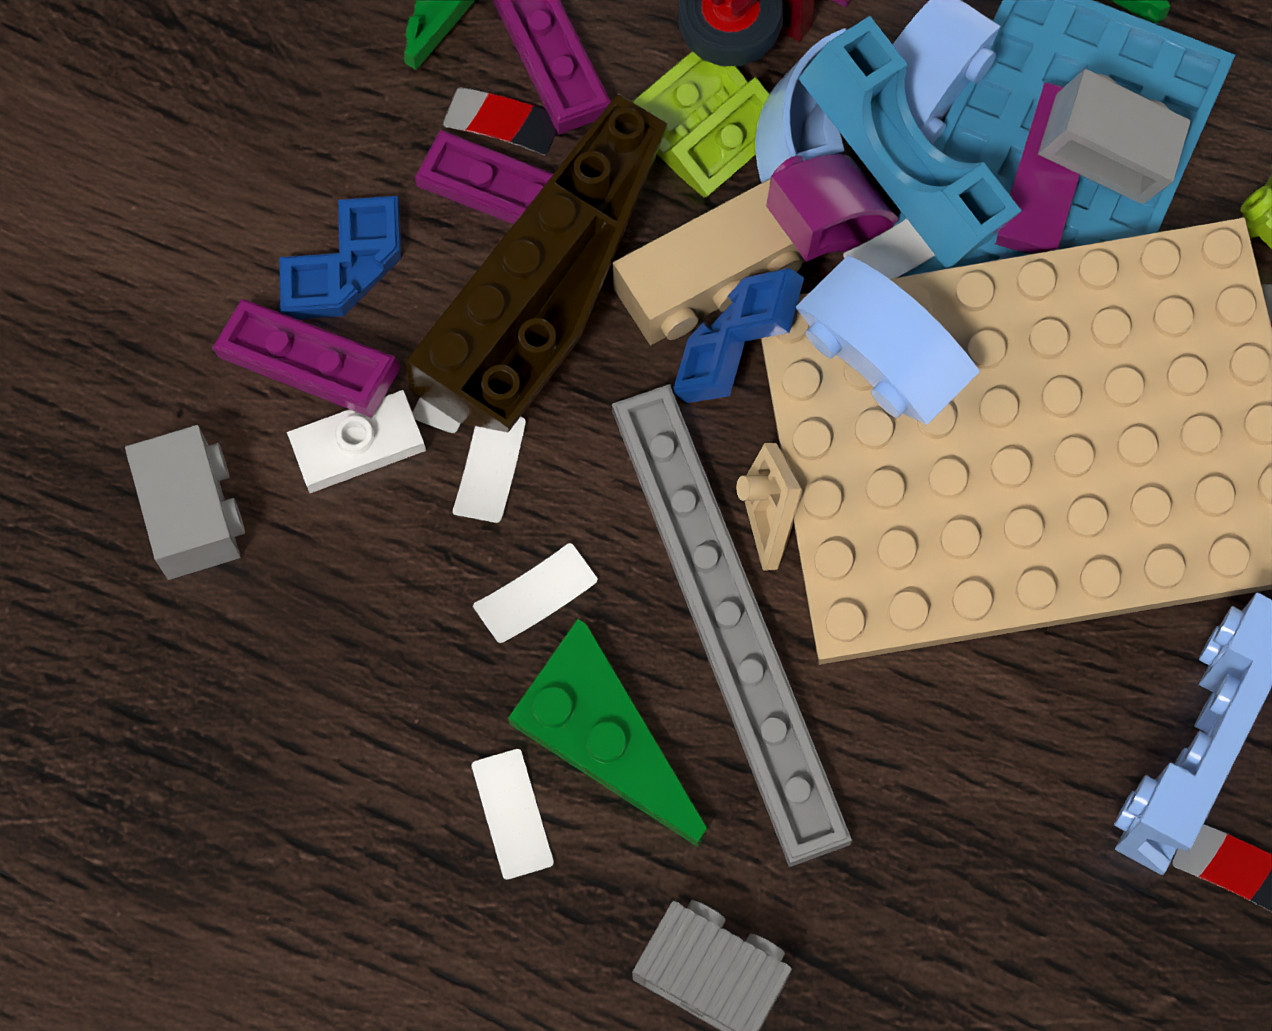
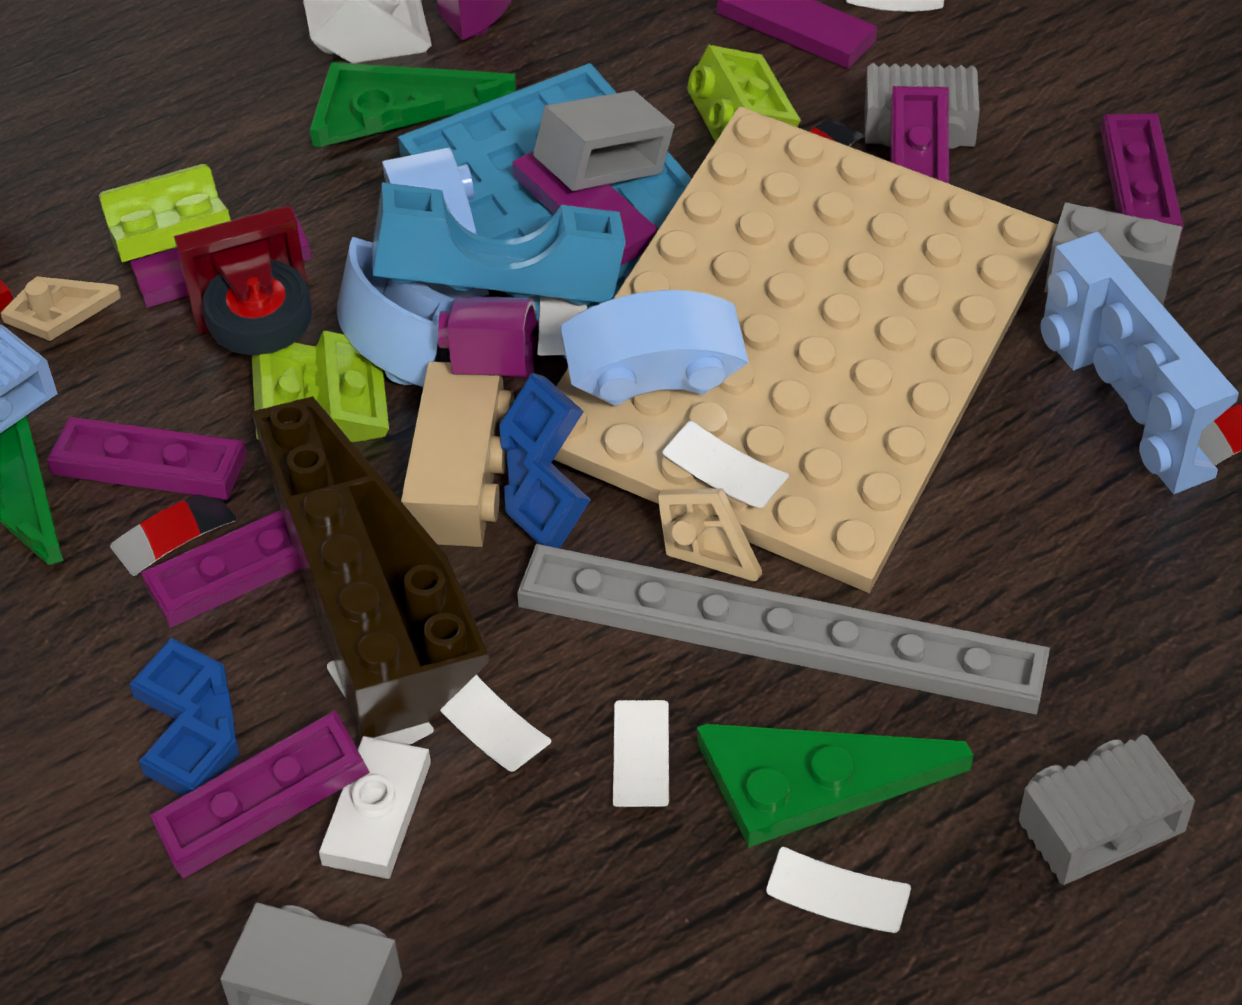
camera: 55 degrees left, 20 degrees down
(831, 474) = (724, 466): none -> white sticker

